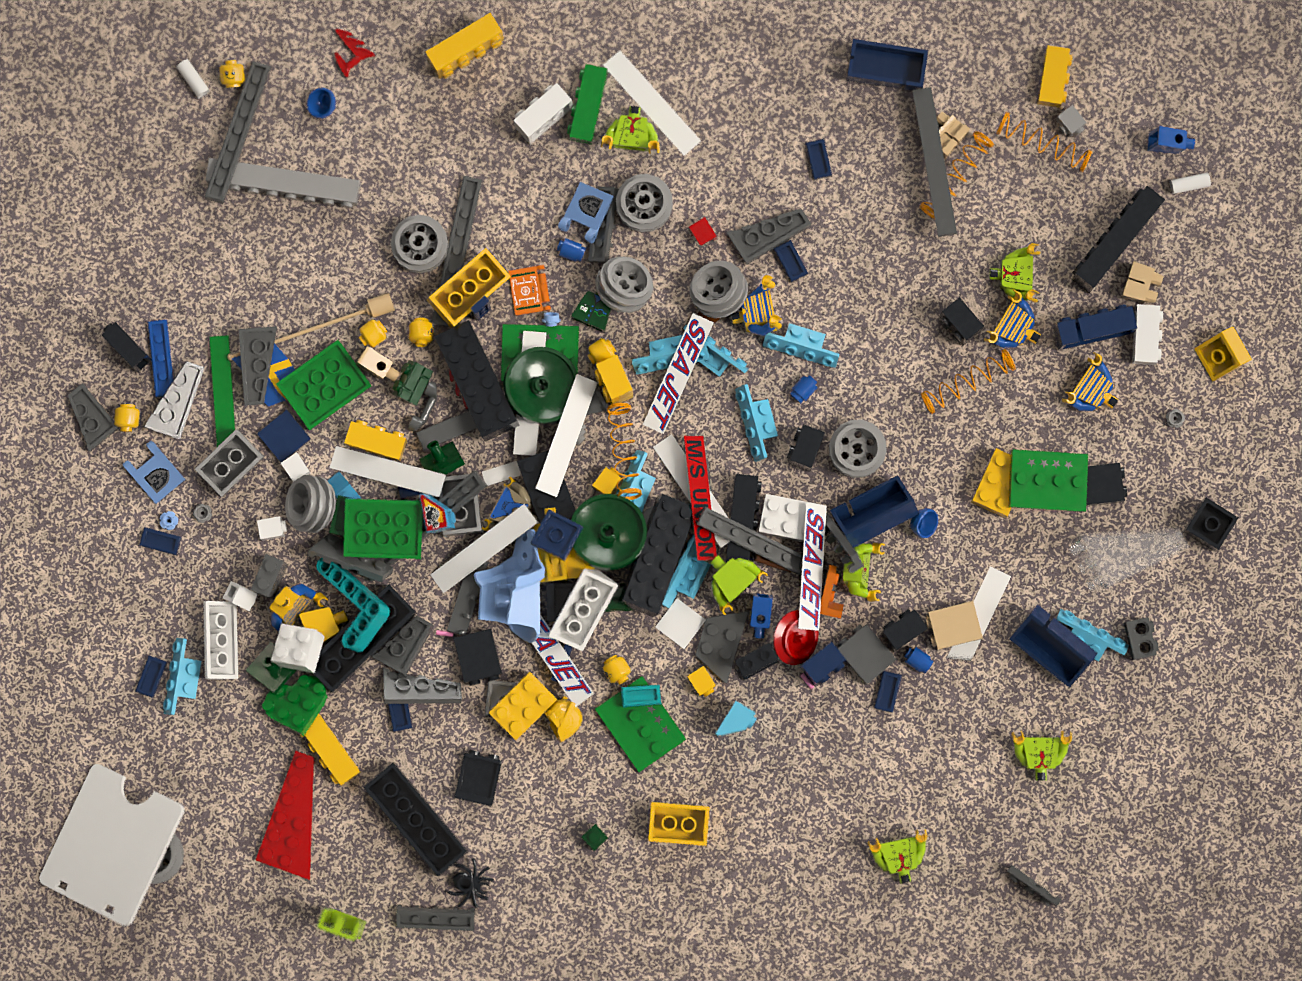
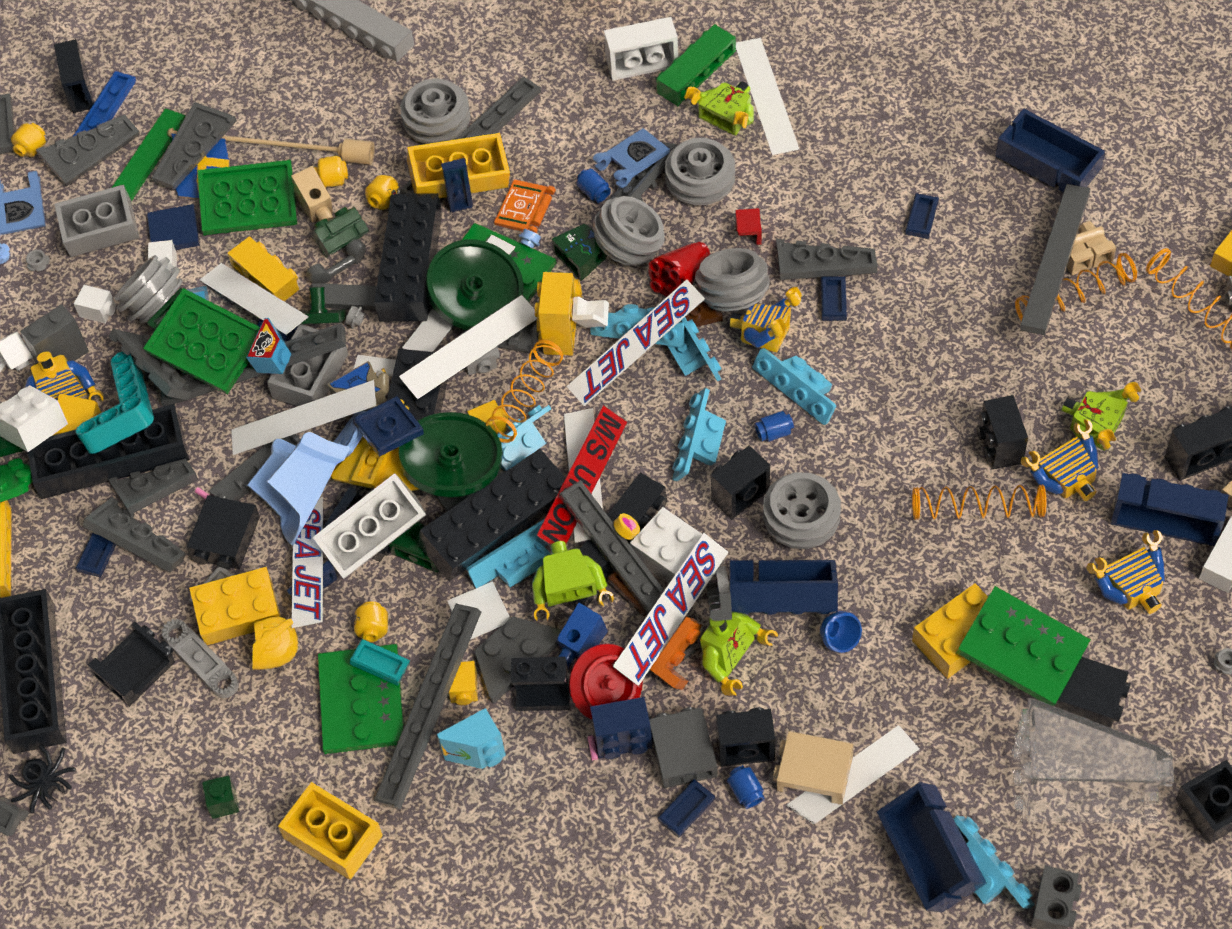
camera: 30 degrees right, 25 degrees down
(463, 444) = (355, 317): none -> light grey plate
(519, 751) = (200, 658): none -> light grey plate
(636, 366) = (590, 312): none -> white panel
(674, 294) = (675, 267): none -> red cone
(691, 710) = (427, 706): none -> dark grey tile
(751, 522) = (626, 526): none -> yellow tile

